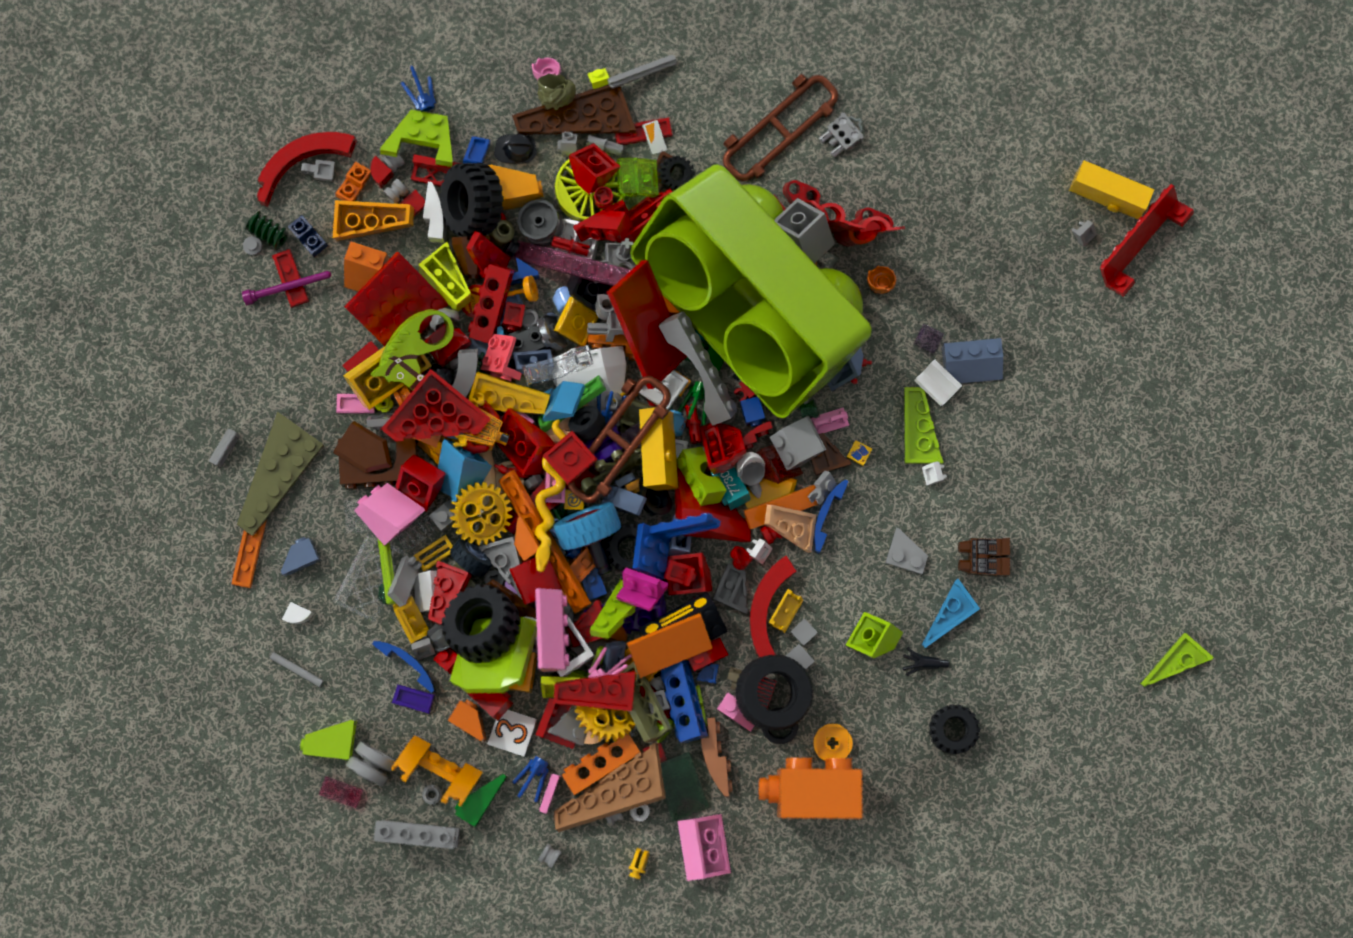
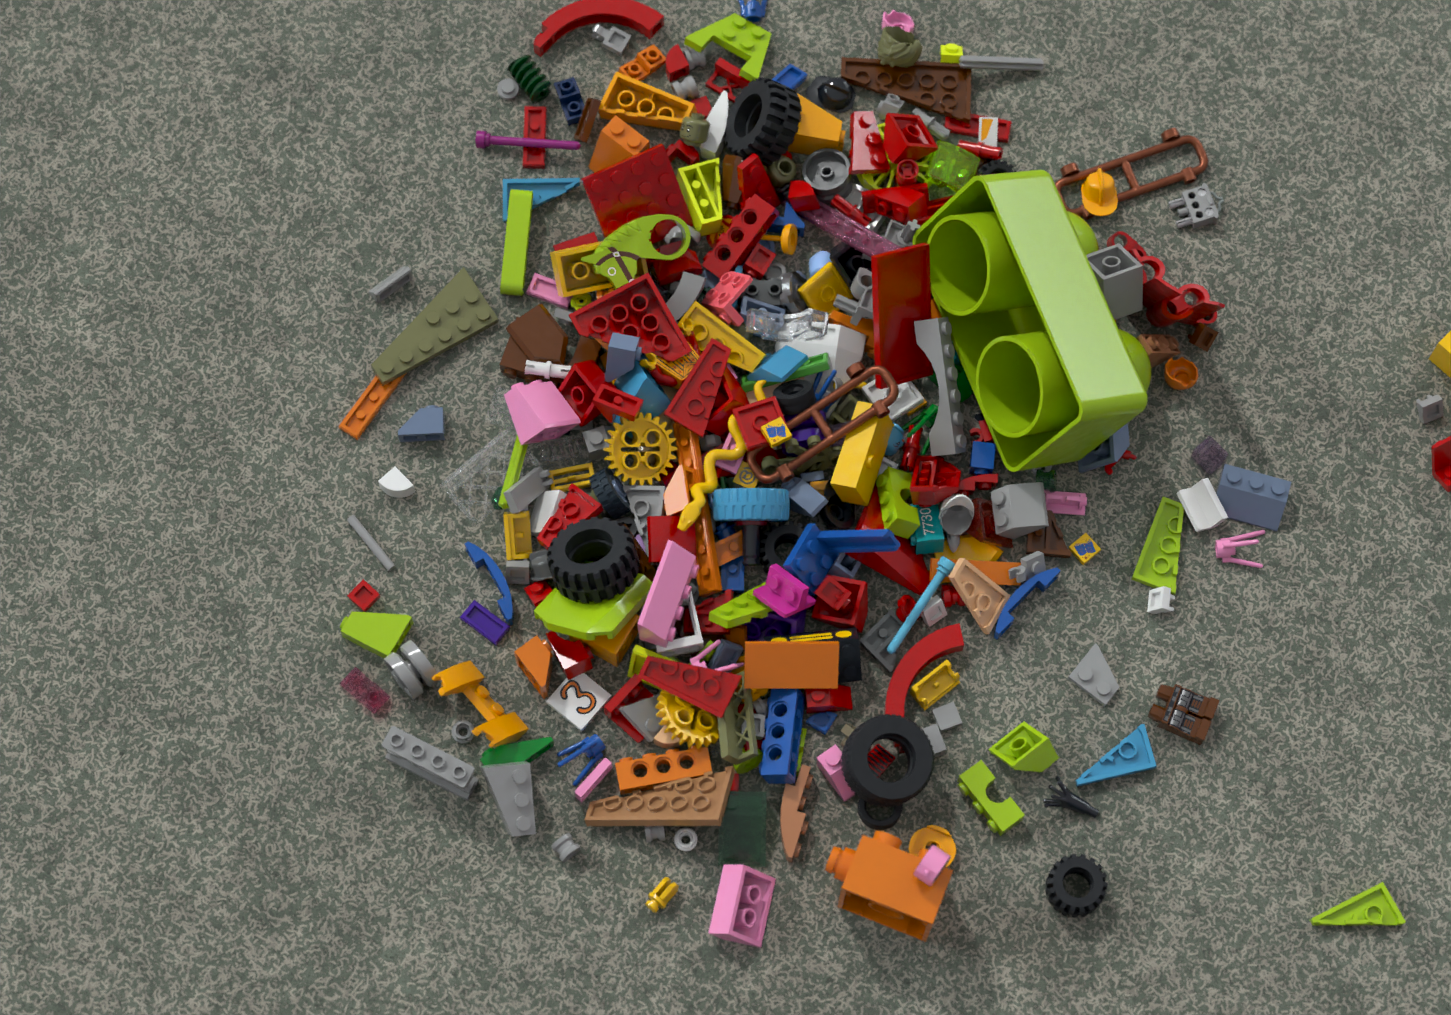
camera: 20 degrees right, 10 degrees down
(304, 330) = (543, 189): none -> dark azure wing
(308, 716) = (363, 596): none -> red plate
(312, 375) = (516, 242): none -> lime beam
(327, 249) = (587, 120): none -> reddish brown tile
(380, 474) = (547, 369): none -> white pin
(418, 226) = (694, 129): none -> olive head
(420, 245) = (686, 153): none -> red bracket
(437, 445) = (621, 355): none -> sand blue slope
(449, 486) = (616, 402): none -> red slope
(492, 833) = (513, 795): none -> light grey wedge
(509, 449) = (699, 391): none -> red wing
(527, 249) = (802, 196): none -> red brick
(563, 188) = (866, 145): none -> wing
(585, 462) = (776, 432): none -> yellow tile
(654, 152) = (982, 150): none -> red pin
(758, 517) = (944, 568): none -> medium azure piece
(762, 153) = (1099, 194): none -> light orange piece
(845, 775) = (931, 865): none -> bright pink piece
(847, 679) = (1001, 815): none -> lime arch
(856, 265) = (1159, 347): none -> nougat slope
(887, 242) = (1203, 336): none -> reddish brown tile
(969, 409) = (1226, 547): none -> bright pink plant

